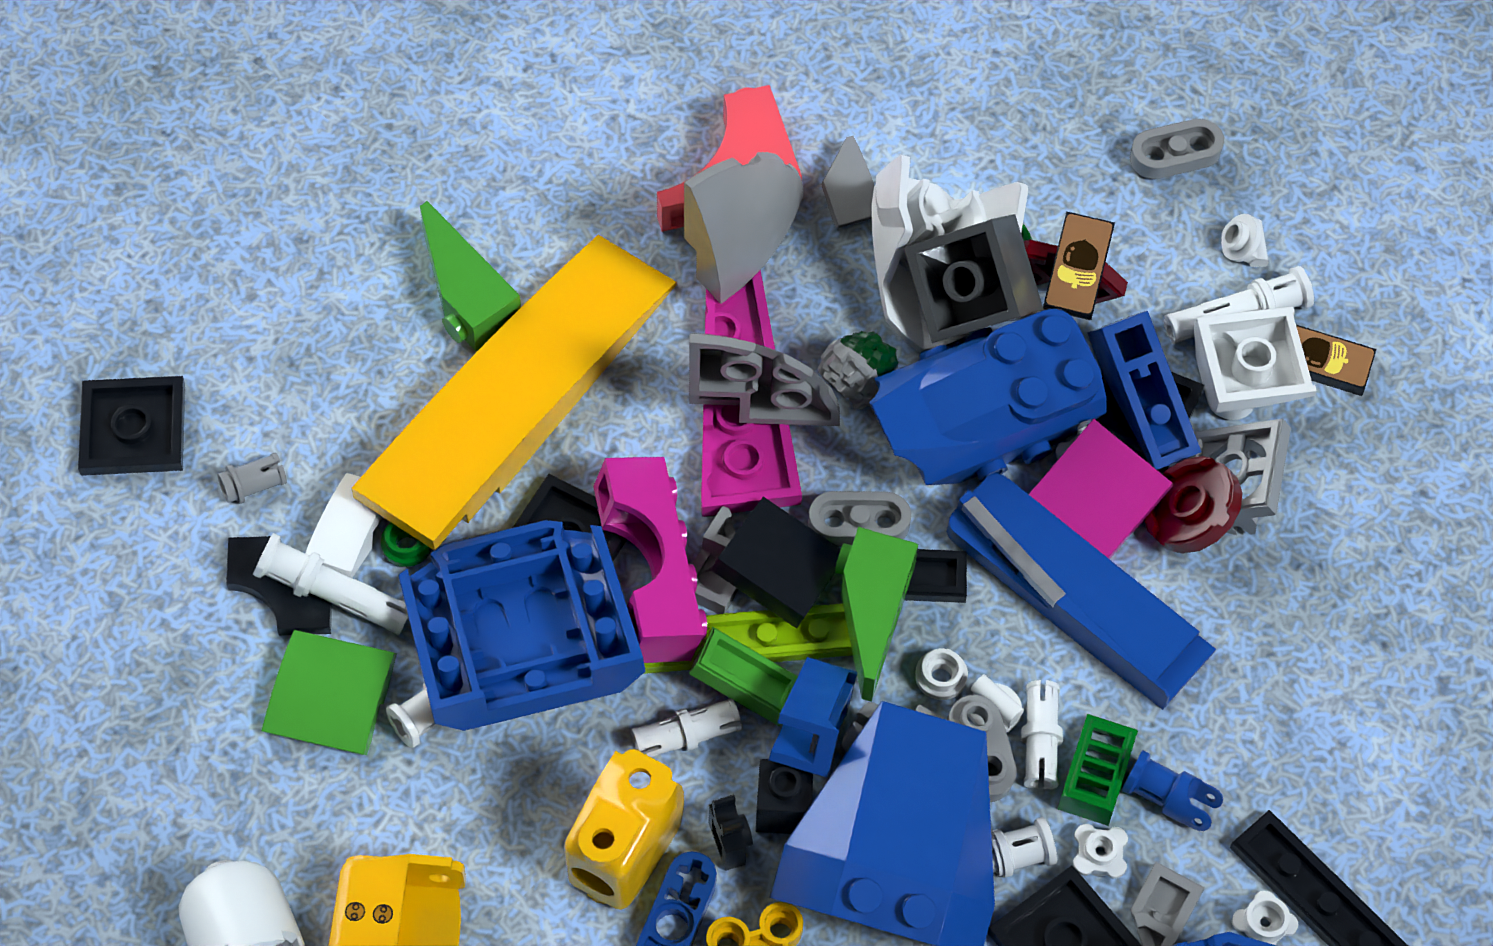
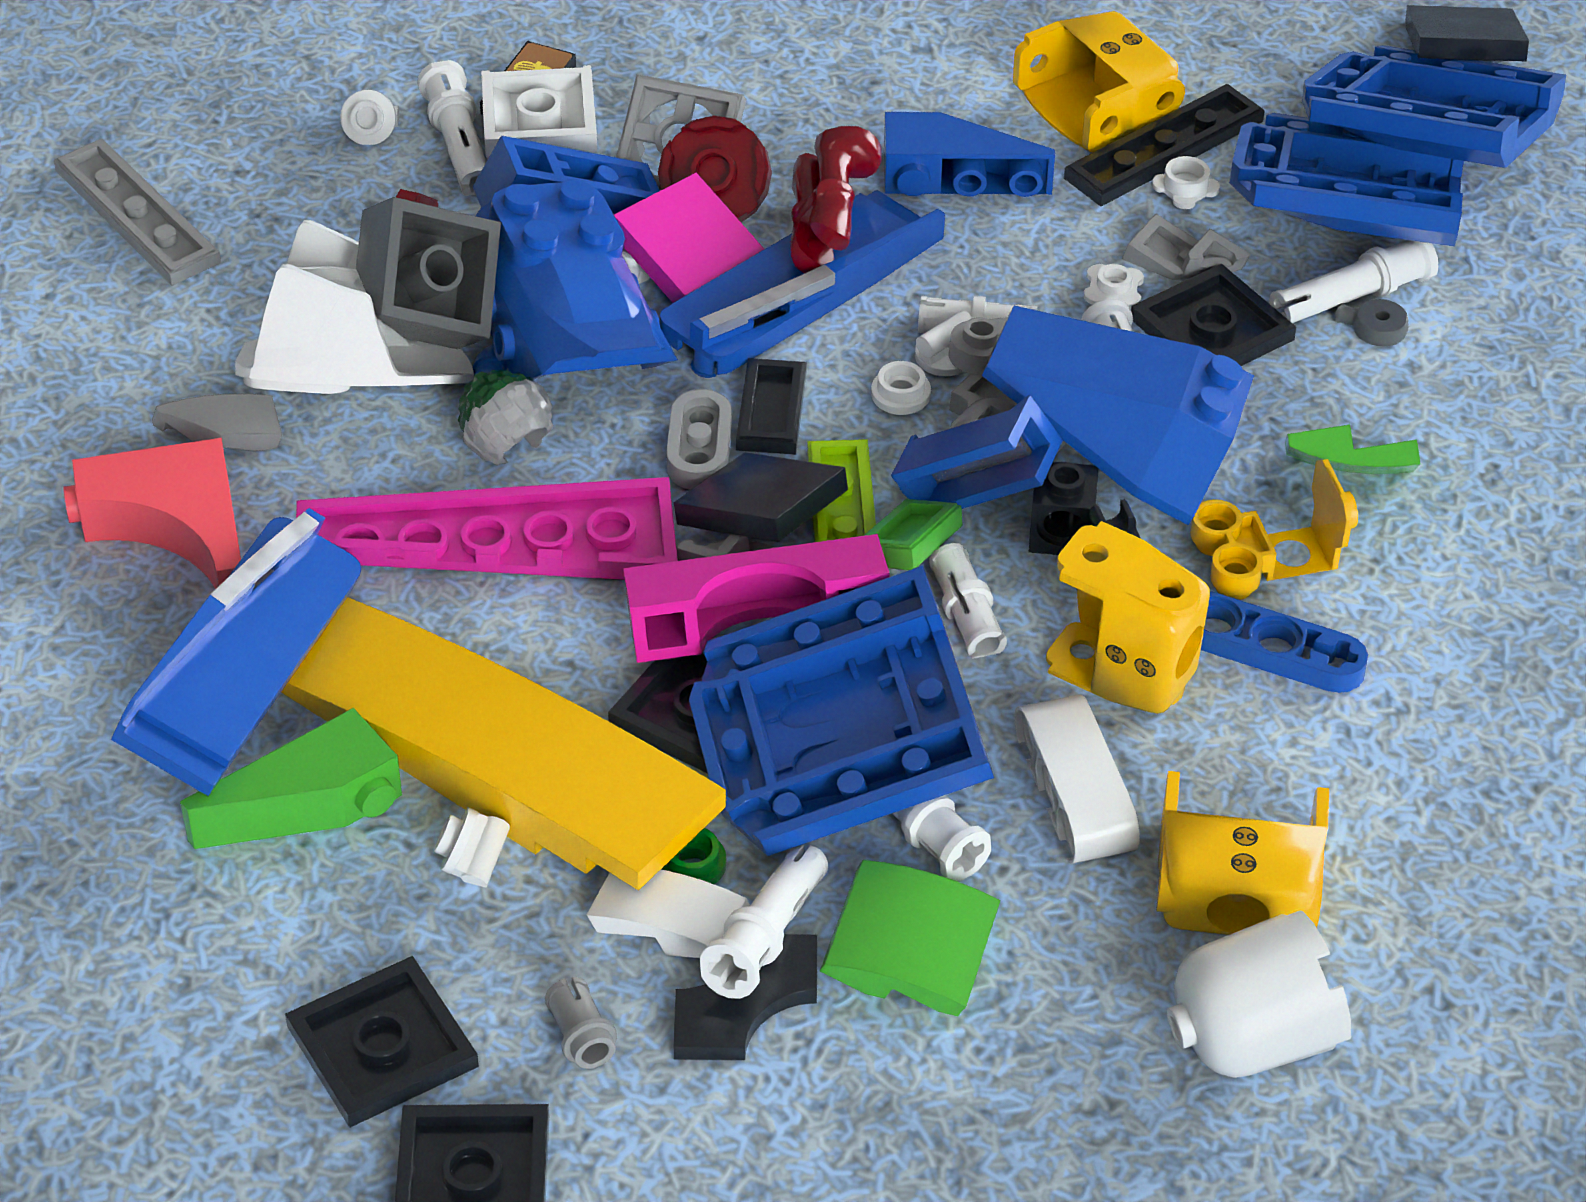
camera: 85 degrees left, 15 degrees down
(245, 360) = (381, 1041): none -> black tile
(410, 392) = (471, 846): none -> white plate
(485, 805) = (1079, 777): none -> white beam
(563, 215) = (238, 652): none -> blue piece
(739, 218) = (302, 468): light grey brick -> none
(760, 380) = (531, 480): light grey brick -> none
(872, 594) = (829, 413): bright green slope -> none
(1079, 265) = (395, 177): medium nougat tile -> none
(1085, 803) = (1031, 280): green slope -> none
(1102, 94) = (137, 212): none -> light grey tile
(1172, 791) = (1045, 227): blue piece -> none
(1174, 148) = (234, 155): light grey plate -> none
(1192, 586) = (824, 195): none -> dark red piece
(1258, 691) = (960, 157): none -> blue slope
(1396, 837) = (1096, 78): none -> yellow piece

